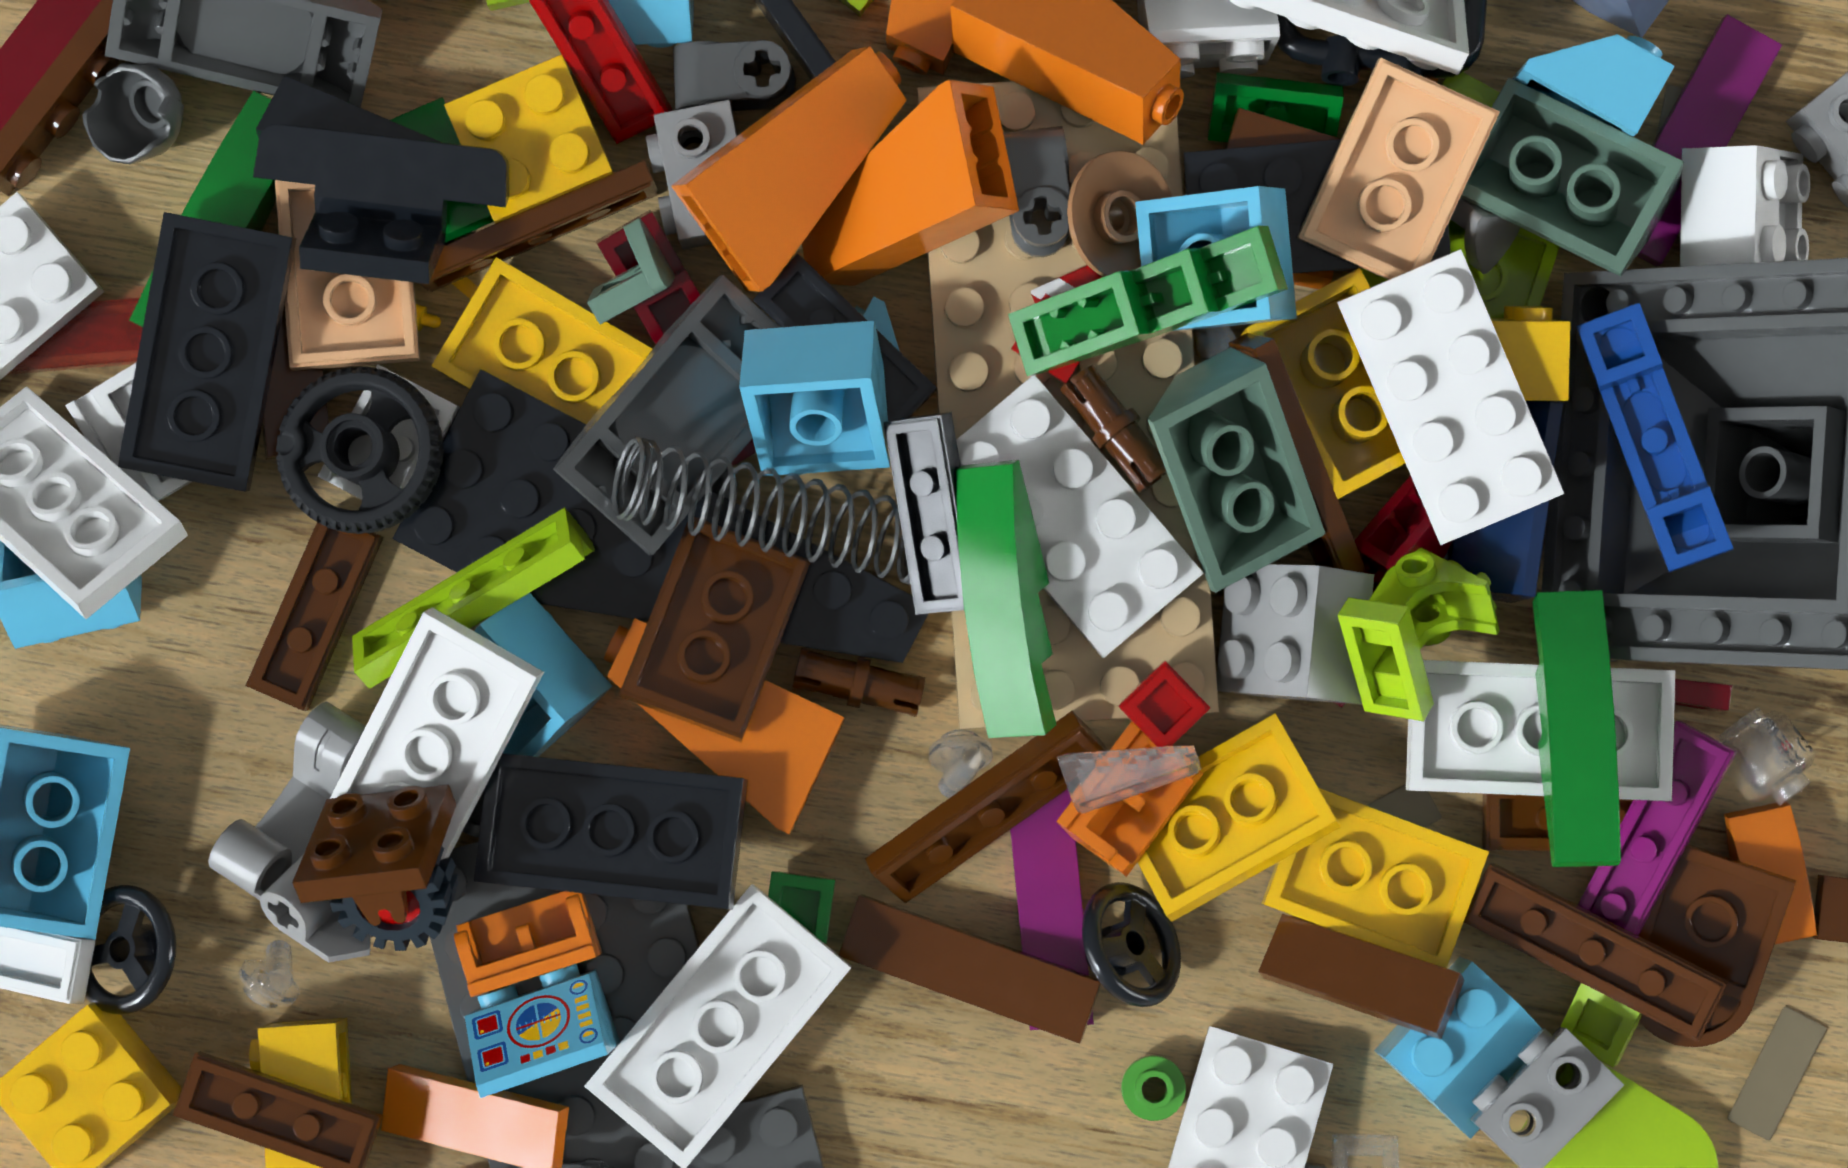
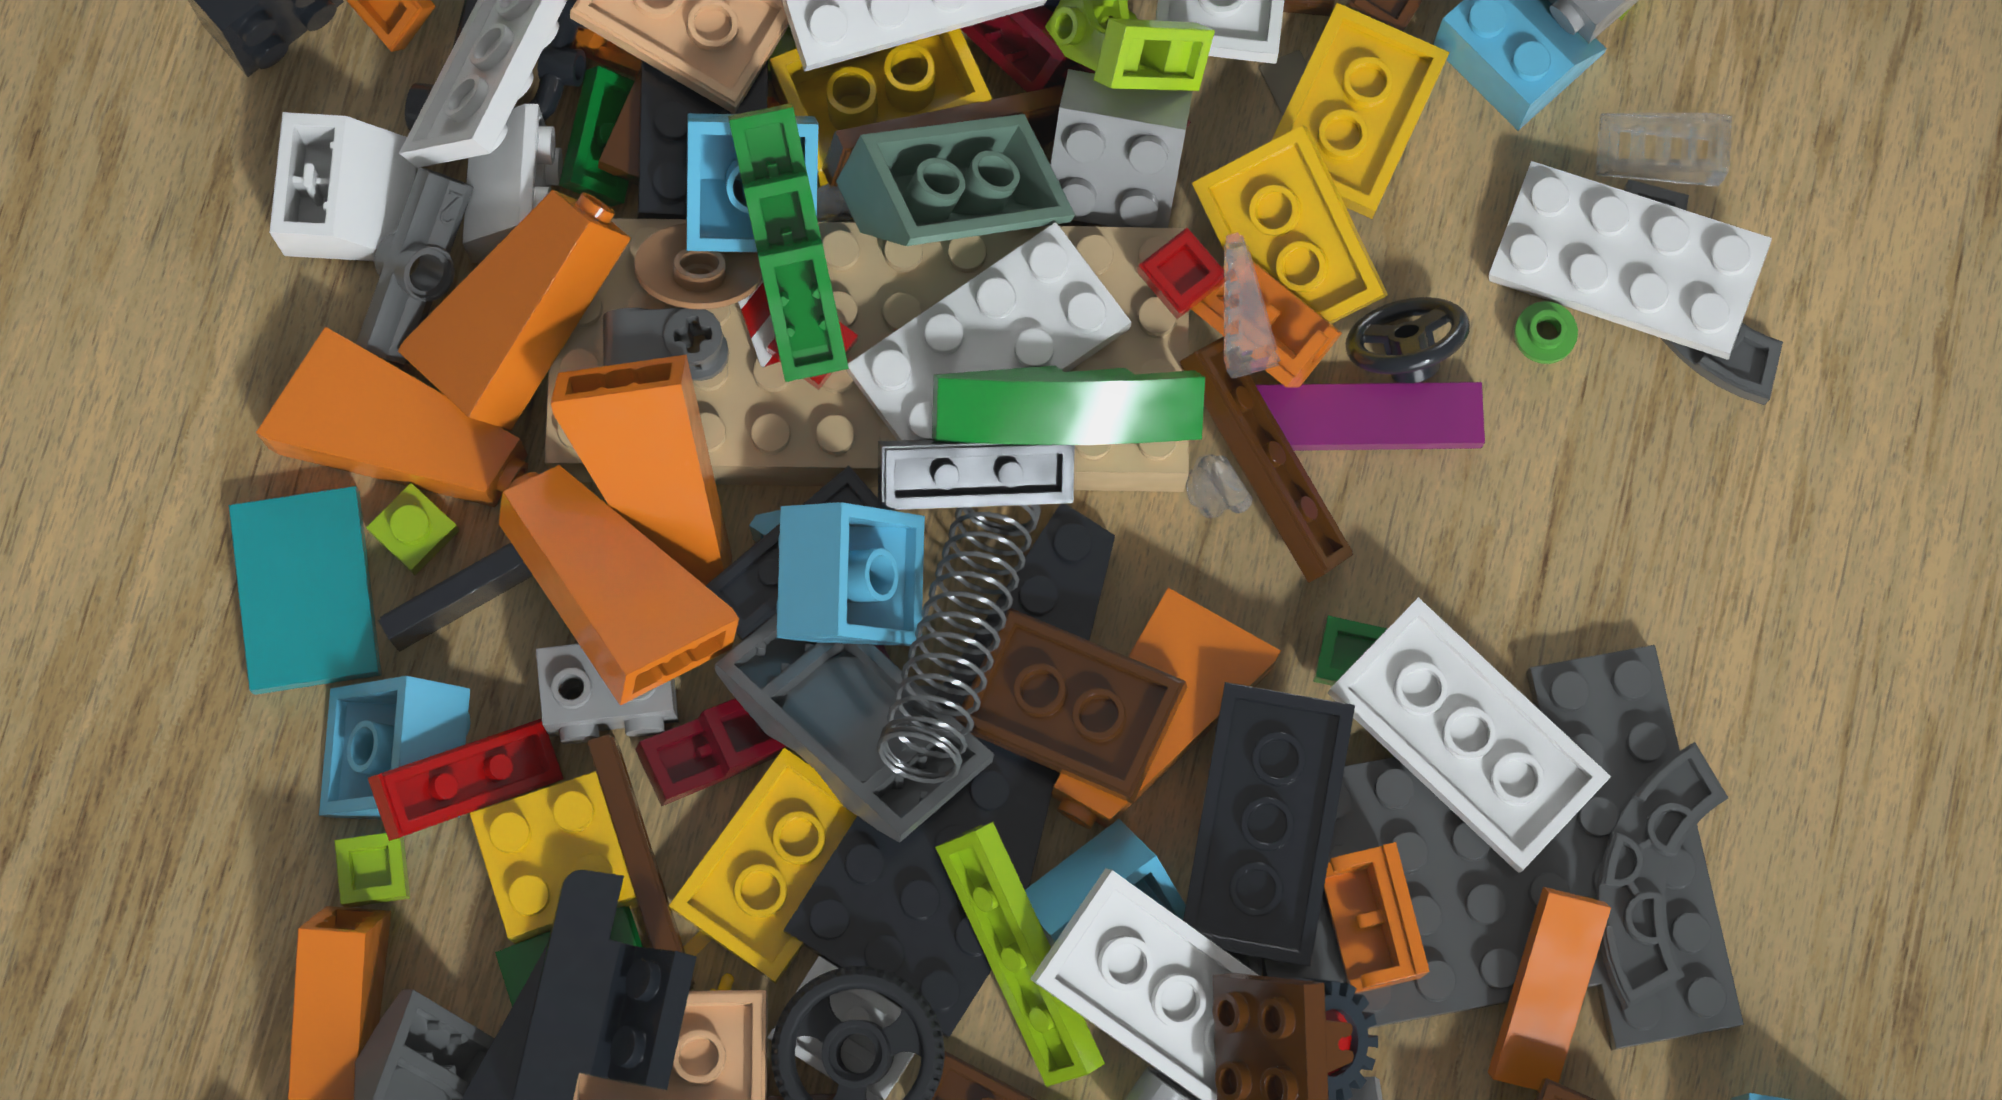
camera: 90 degrees left, 10 degrees down
(540, 1030) = (1468, 905): medium azure slope -> none
(637, 284) = (712, 759): sand green tile -> none
(726, 71) = (506, 665): dark grey piece -> none
(858, 682) = (1131, 580): reddish brown pin -> none
(970, 968) = (1421, 493): reddish brown tile -> none
(1115, 428) = (907, 292): reddish brown pin -> none
(1362, 976) = (1450, 123): reddish brown tile -> none

